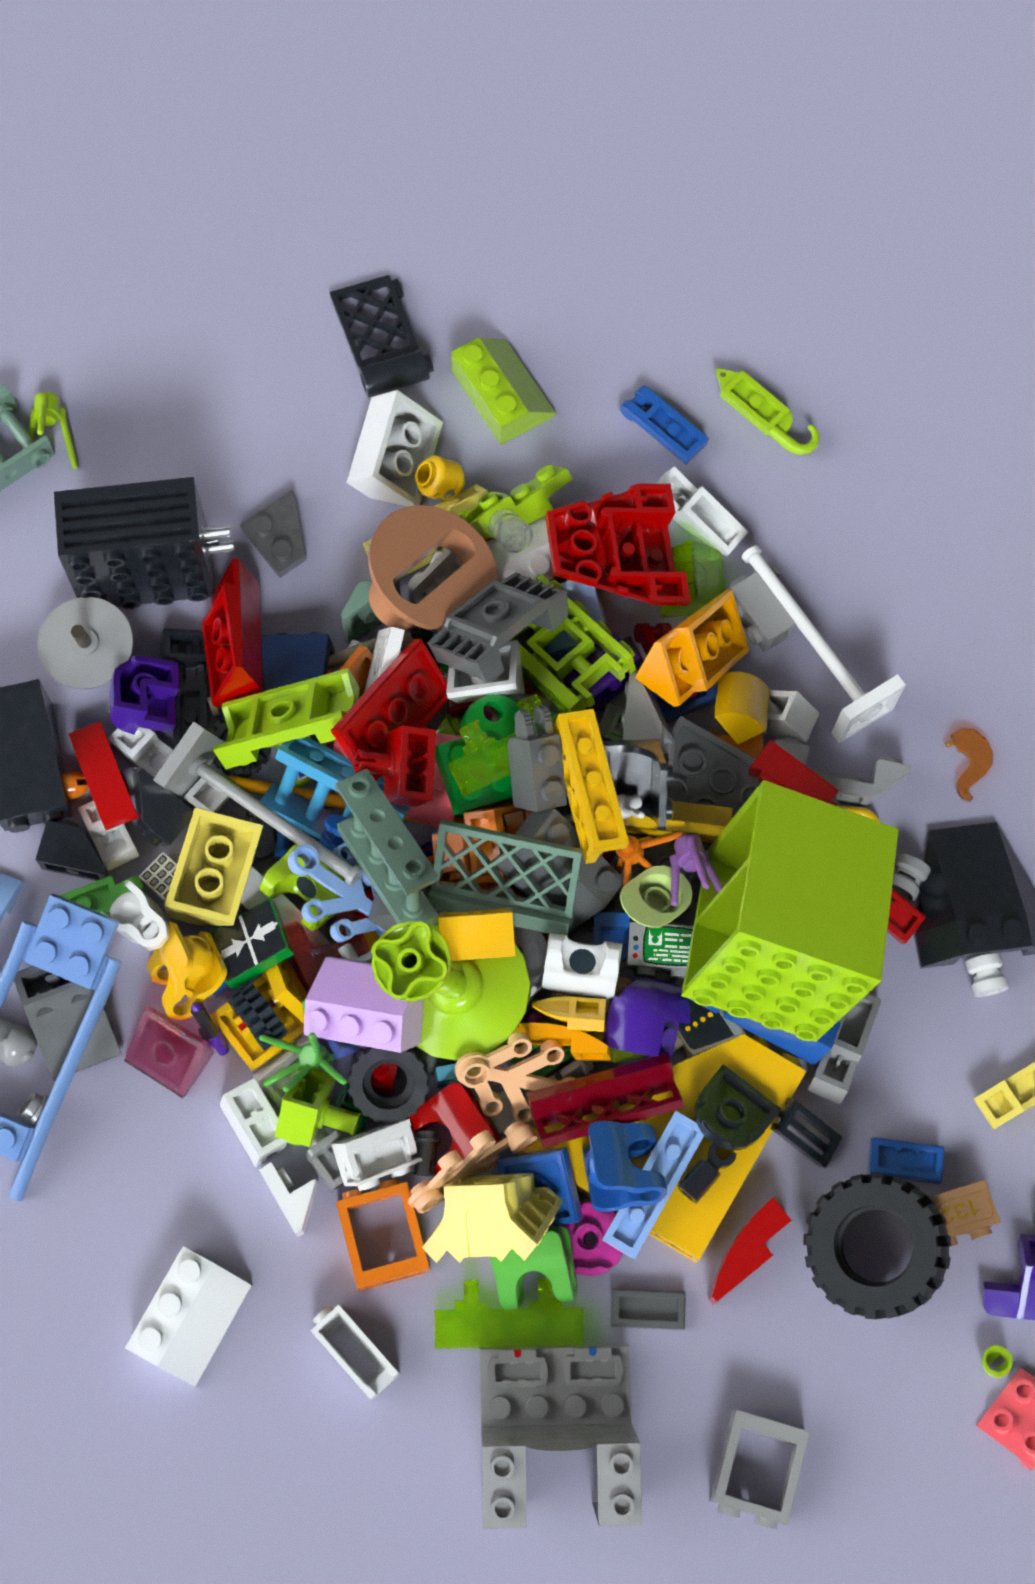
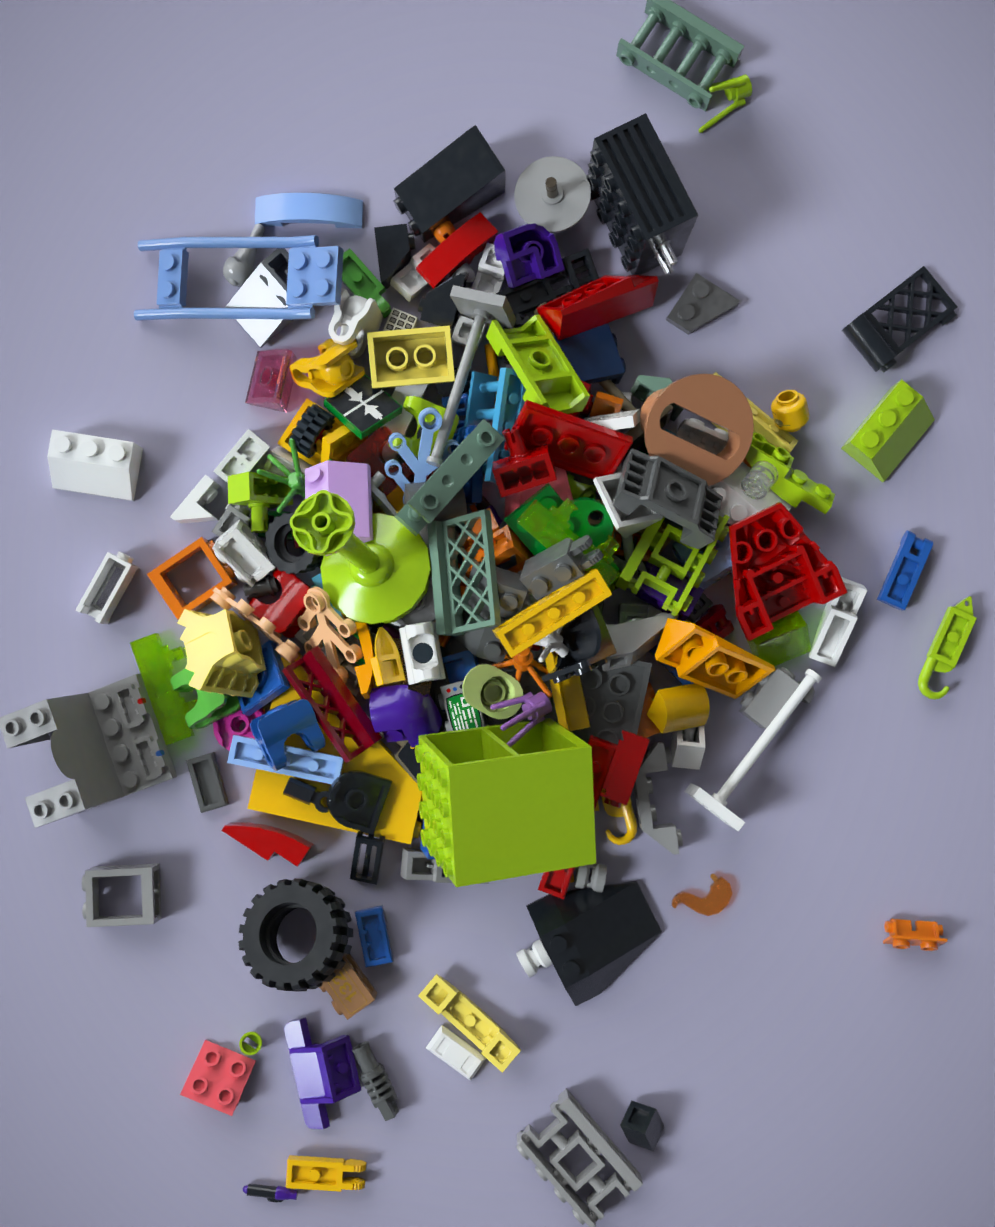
camera: 75 degrees right, 15 degrees up
(32, 1108) = (198, 300): light grey plate -> none
(208, 1029) = (293, 401): piece -> none
(391, 447) = (804, 364): white slope -> none
(478, 933) = (412, 567): yellow brick -> none

